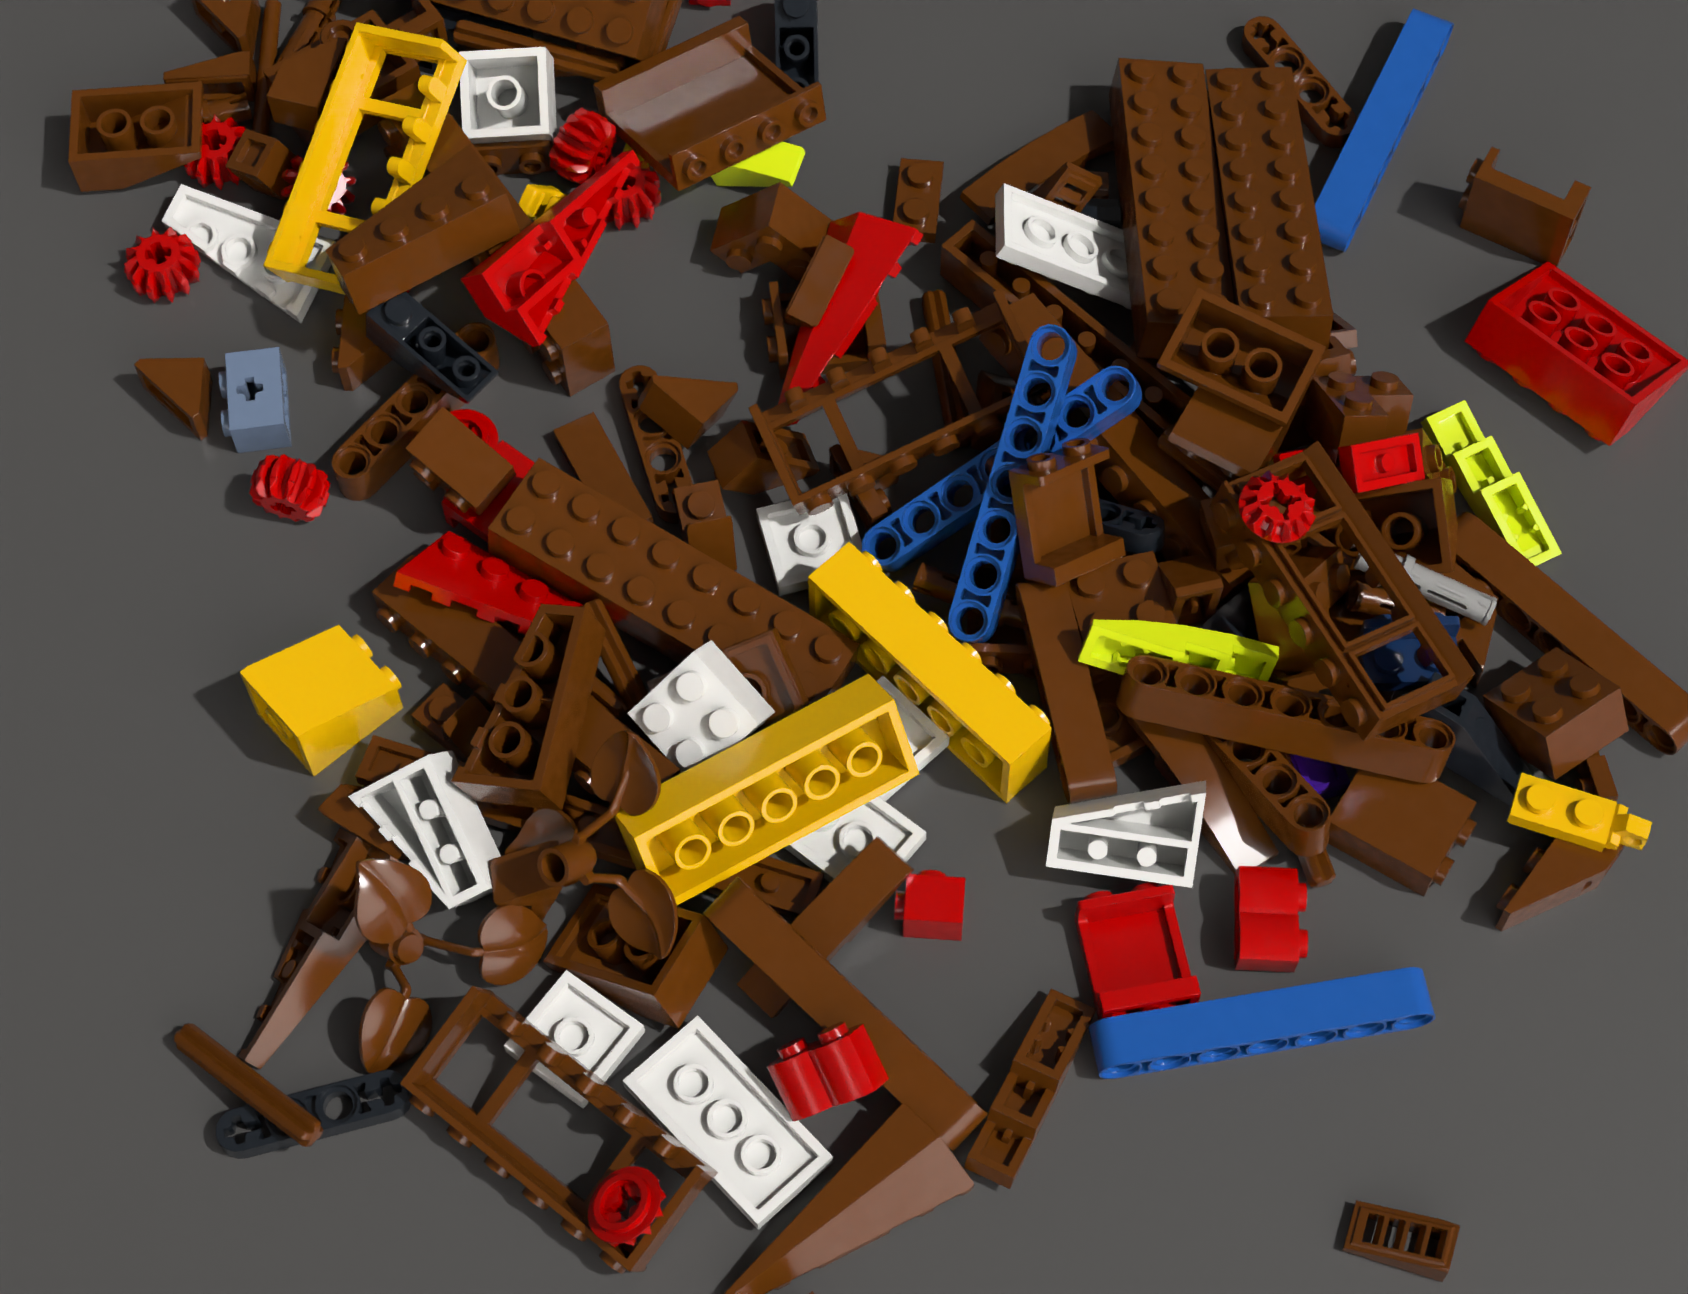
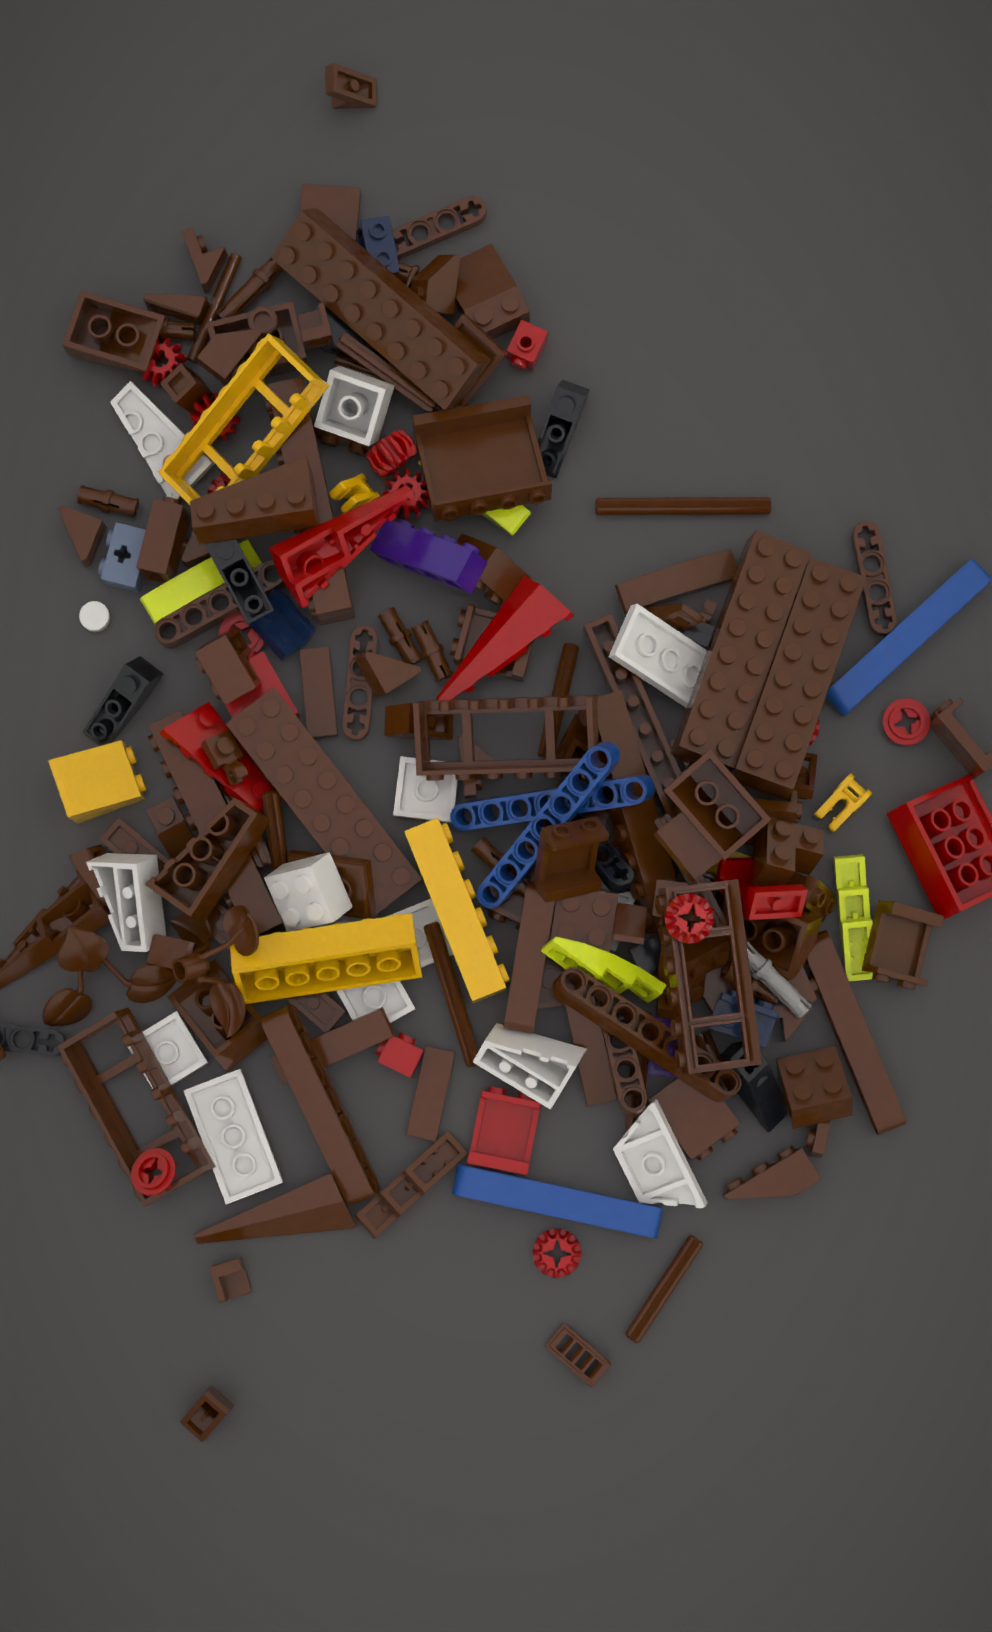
camera: 25 degrees right, 20 degrees up
(162, 265) = (106, 444): red gear -> none
(233, 494) = (94, 616): none -> white tile
(234, 340) = (108, 501): none -> reddish brown pin
(289, 488) = (124, 632): red gear -> none
(303, 354) = (163, 540): none -> reddish brown window
(321, 578) = (123, 700): none -> black slope
(352, 406) = (190, 586): none -> neon yellow slope
(503, 575) = (225, 753): none -> reddish brown plate
(517, 405) = (284, 628): none -> dark blue bracket
(682, 360) = (400, 636): none -> reddish brown pin
(689, 234) = (429, 555): none -> dark purple brick
(705, 522) = (364, 756): reddish brown slope -> none
(742, 367) = (432, 651): none -> reddish brown pin
(818, 283) = (495, 622): reddish brown slope -> none
(827, 1071) = (295, 1139): red brick -> none
(919, 196) = (591, 570): reddish brown plate -> none
(974, 792) = (451, 992): none -> reddish brown axle
(1001, 948) = (430, 1093): none -> reddish brown tile
(1003, 85) = (683, 506): none -> reddish brown axle
(1268, 919) = (589, 1140): red brick -> none
(1287, 1121) = (567, 1243): none -> red gear
(1382, 905) = (656, 1162): none -> white wing
(1401, 338) = (844, 794): none -> yellow piece
(1430, 213) = (912, 709): none -> red gear
(1481, 1091) = (664, 1289): none -> reddish brown axle
(1569, 485) = (899, 943): none -> reddish brown panel
(1575, 815) = (790, 1156): yellow hinge -> none

